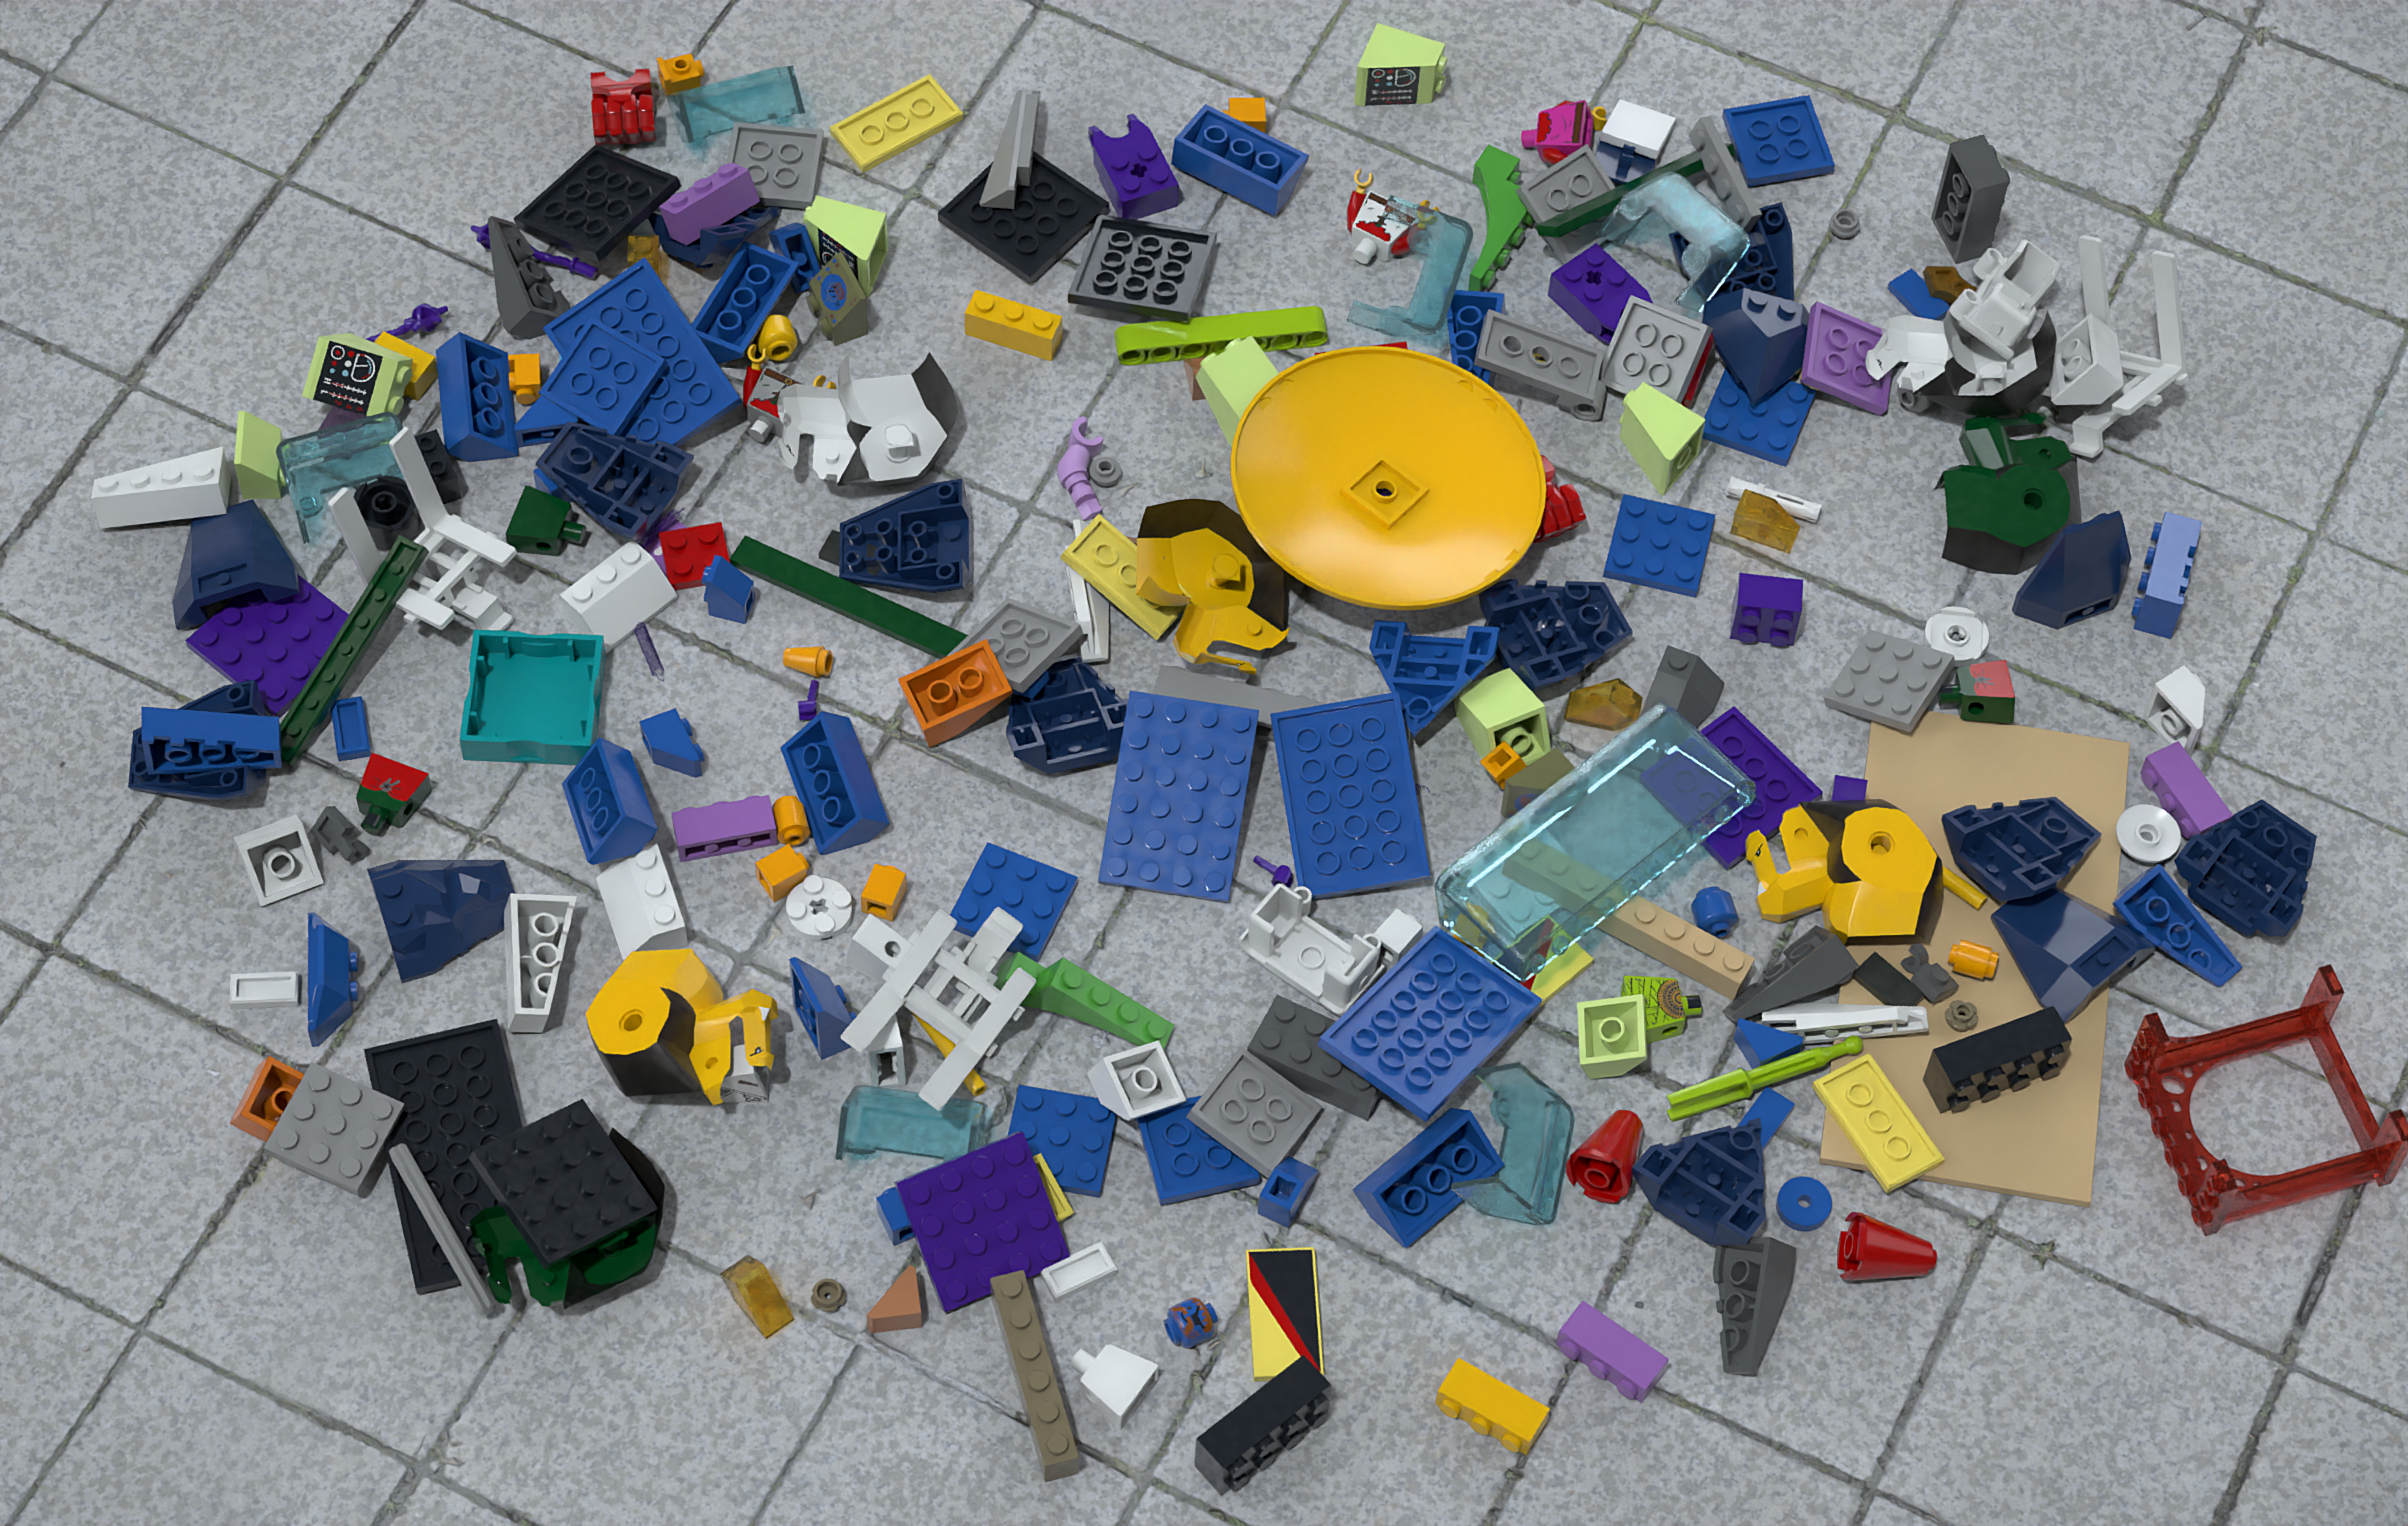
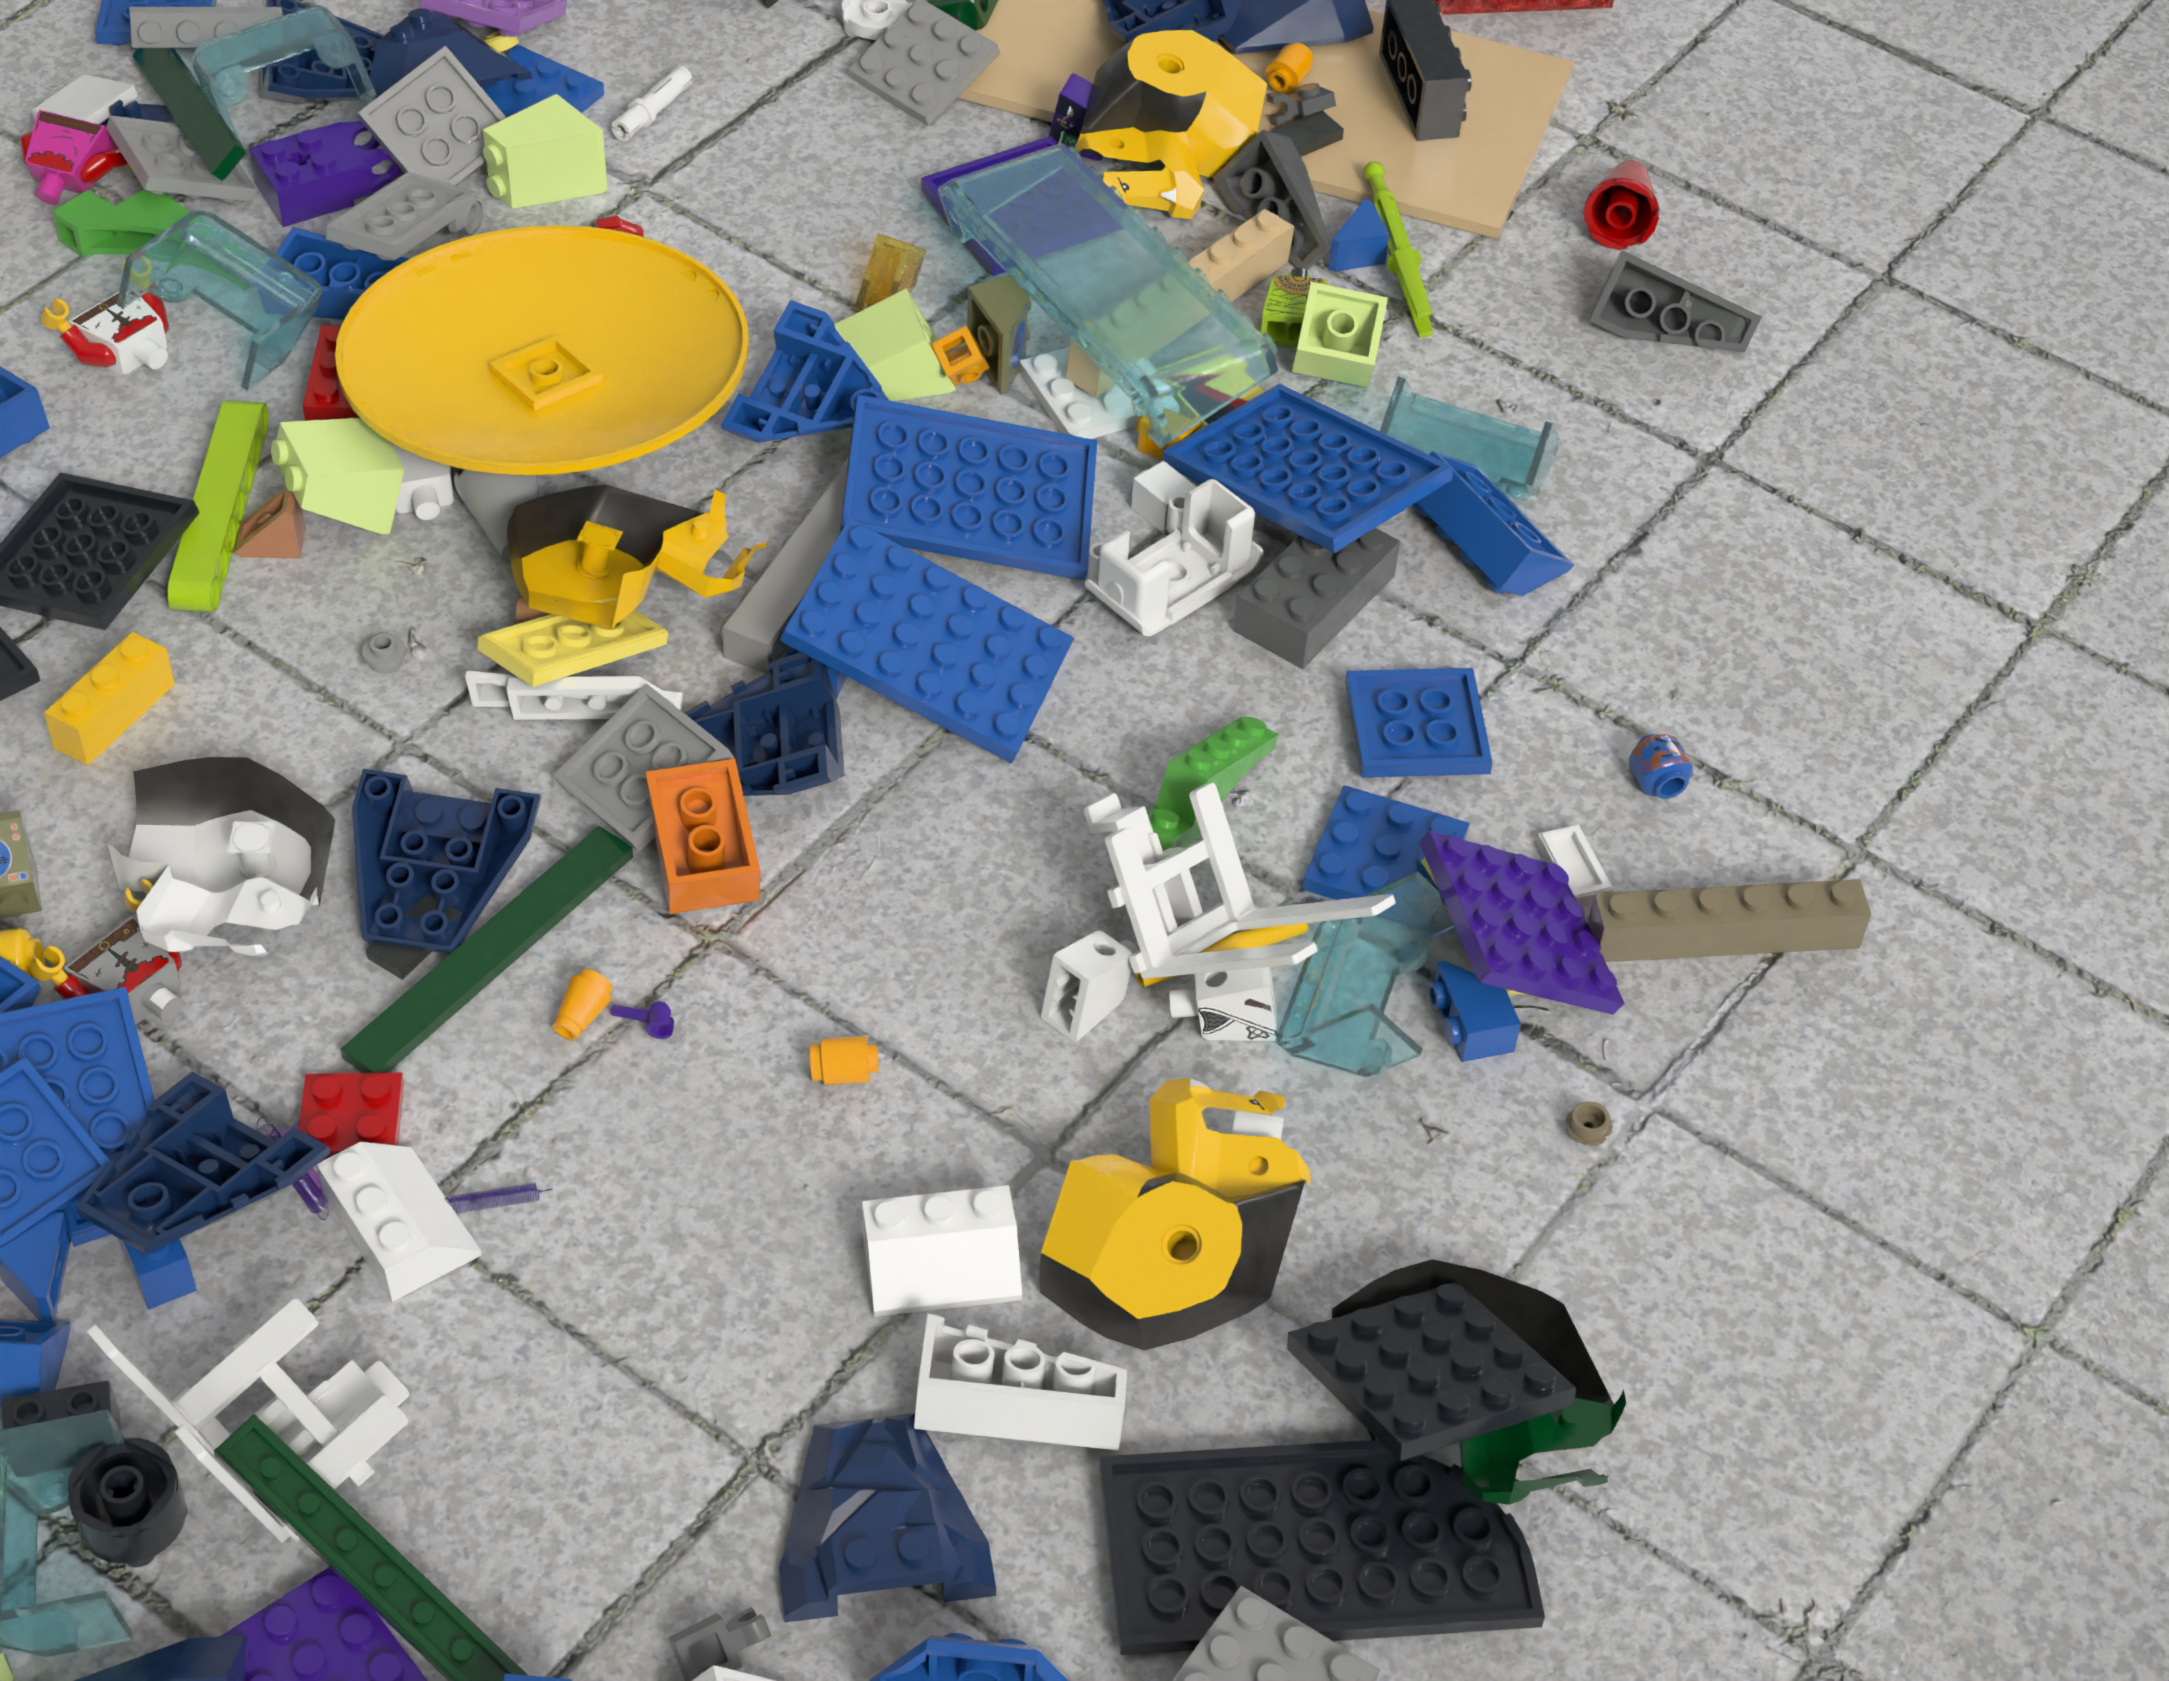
camera: 80 degrees left, 10 degrees down
(350, 729) = (517, 1612): blue tile -> none
(390, 793) = (659, 1562): torso -> none
(442, 1229) = (1454, 1563): light grey axle -> none
(532, 697) = (543, 1344): teal tile -> none
(542, 524) = (223, 1293): dark green torso -> none
(609, 803) = (778, 1255): blue slope -> none
(670, 744) = (677, 1180): blue slope -> none
(724, 828) = (834, 1137): medium lavender brick -> none
(728, 591) = (443, 1073): blue slope -> none
(757, 1295) = (1584, 1198): clear yellow slope -> none
(781, 872) = (928, 1080): light orange brick -> none
(820, 1008) = (1172, 1046): blue slope -> none
(823, 925) = (993, 1031): white plate -> none
(834, 783) = (795, 1001): blue slope -> none
(884, 892) = (985, 971): light orange brick -> none
(898, 1307) = (1612, 1043): nougat slope -> none
(1023, 889) = (1021, 849): blue plate -> none
(1073, 469) = (368, 676): lavender piece -> none
(1114, 1381) = (1741, 846): white torso -> none
(1136, 1082) = (1334, 750): white slope -> none
(1254, 1112) = (1390, 650): light grey plate -> none
(1263, 1426) = (1817, 709): black brick -> none
(1281, 874) = (1046, 584): dark purple hand -> none
(1283, 1309) = (1650, 686): tile -> none
(1286, 1190) = (1496, 644): blue slope -> none
(1492, 1407) = (1787, 526): yellow brick -> none
(1552, 629) = (783, 267): dark blue wedge -> none
(1607, 1158) = (1487, 371): red cone -> none
(1611, 1352) = (1724, 421): medium lavender brick -> none
(1659, 545) = (680, 201): blue plate -> none
(1686, 685) = (870, 210): dark grey wedge -> none
(1708, 1183) = (1539, 301): dark blue wedge -> none
(1714, 911) = (1188, 234): blue head -> none
(1764, 522) = (678, 116): clear yellow slope -> none
(1766, 609) = (810, 121): dark purple brick -> none
(1772, 1111) = (1449, 265): blue tile -> none
(1800, 1217) = (1549, 255): blue piece -> none
(1837, 1021) = (1342, 168): white wedge -> none
(1878, 1123) = (1467, 177): light yellow tile -> none
(1958, 1022) = (1350, 94): dark tan plate -> none

